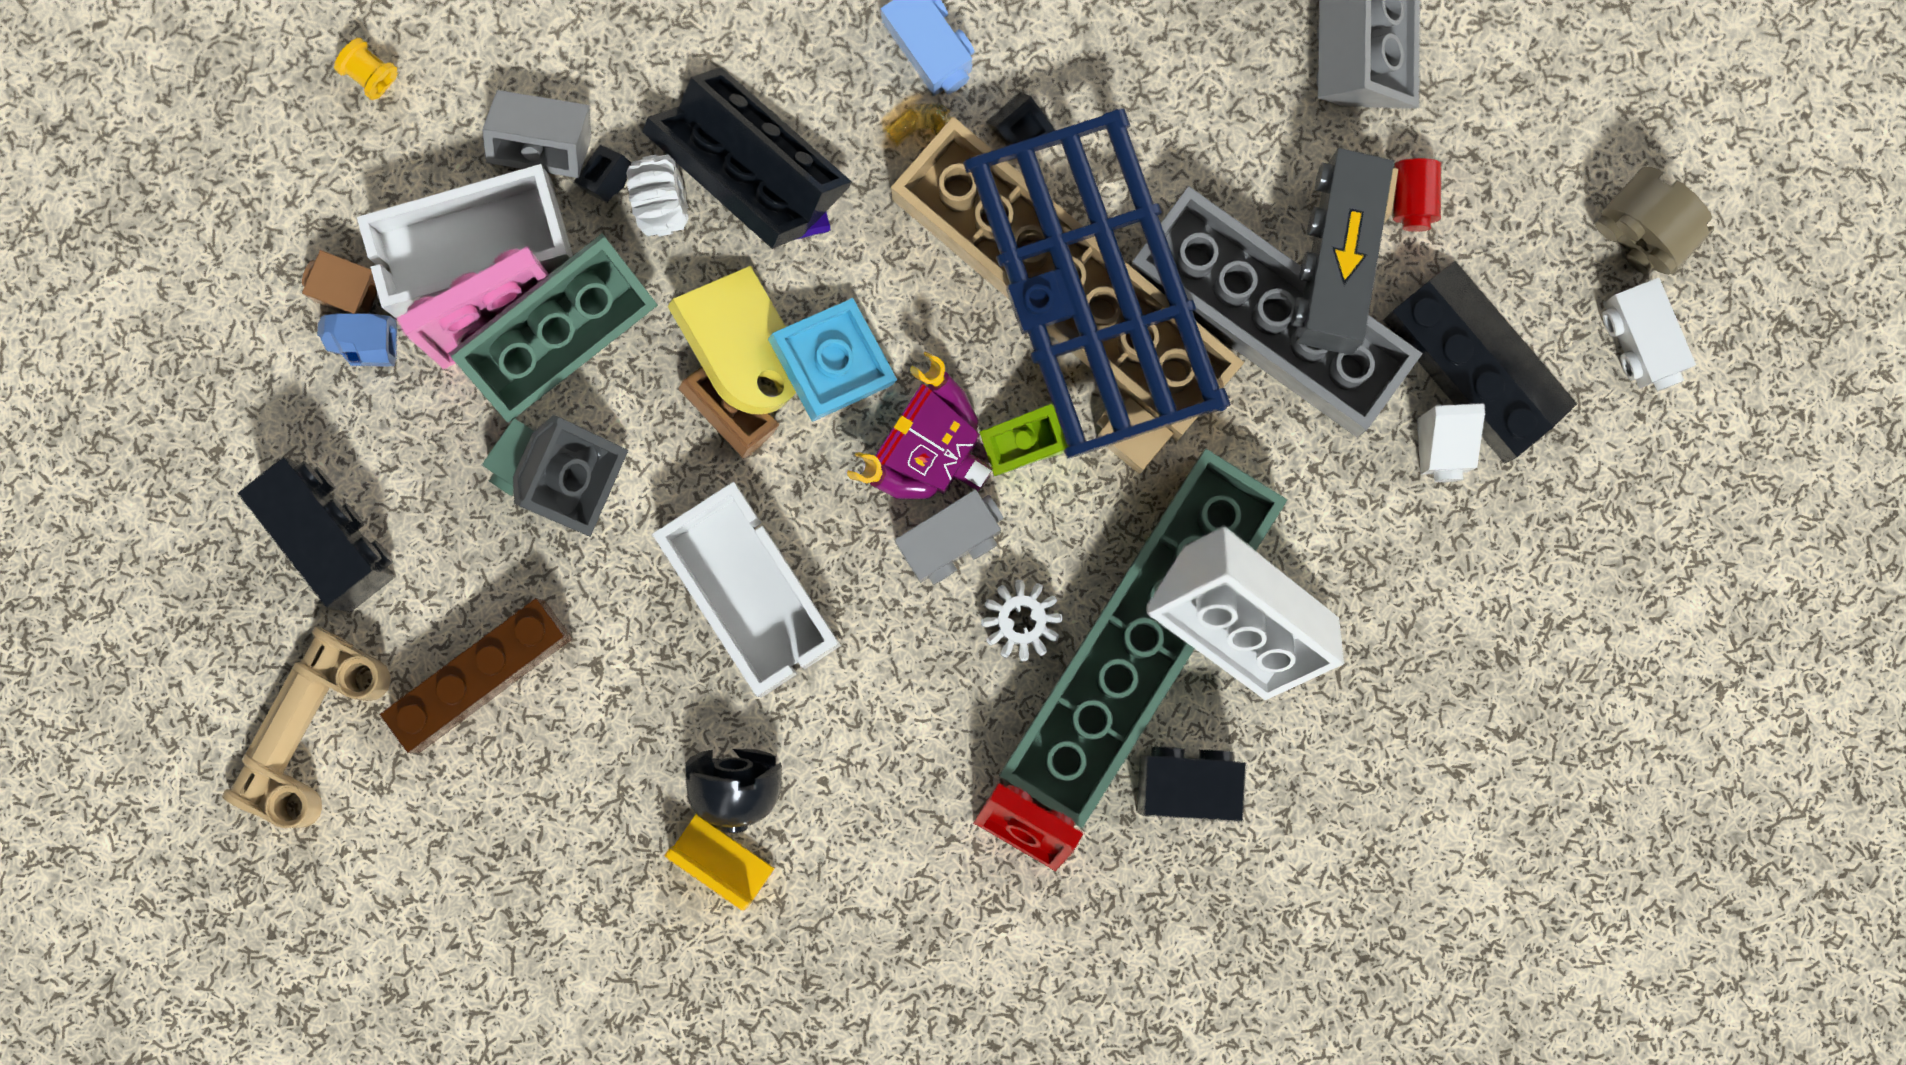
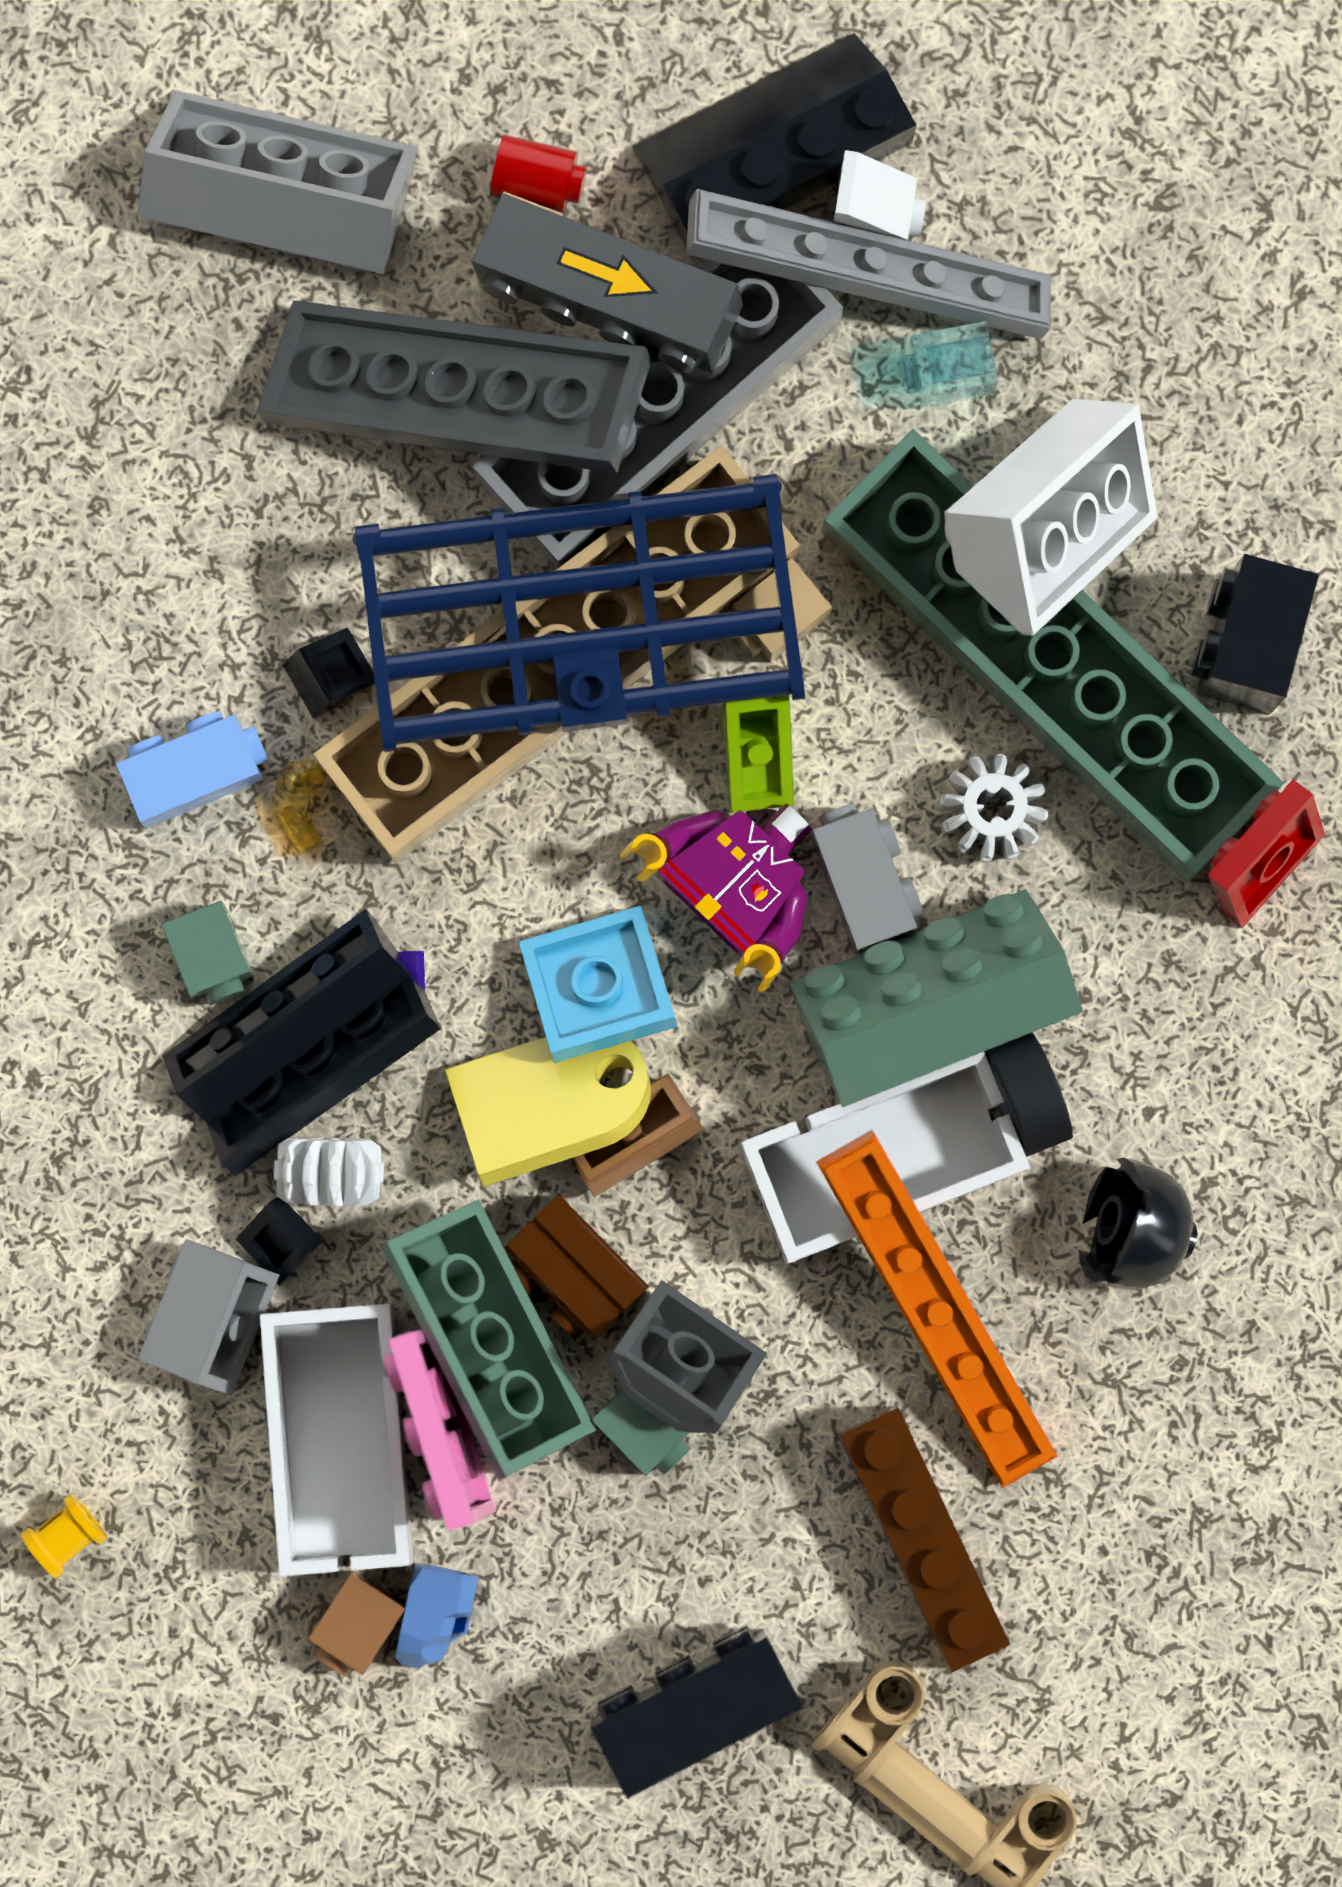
camera: 85 degrees left, 0 degrees up
(623, 386) = (574, 1269): none -> reddish brown brick
(643, 649) = (936, 1308): none -> orange tile
(720, 862) = (1229, 1267): yellow panel -> none
(799, 80) = (209, 953): none -> sand green brick
(815, 684) = (1030, 1094): none -> black tyre
(869, 602) = (935, 997): none -> sand green brick
(1245, 163) = (455, 386): none -> dark grey plate
(1343, 522) = (950, 365): none -> clear light blue brick
(1404, 443) = (868, 264): none -> light grey tile

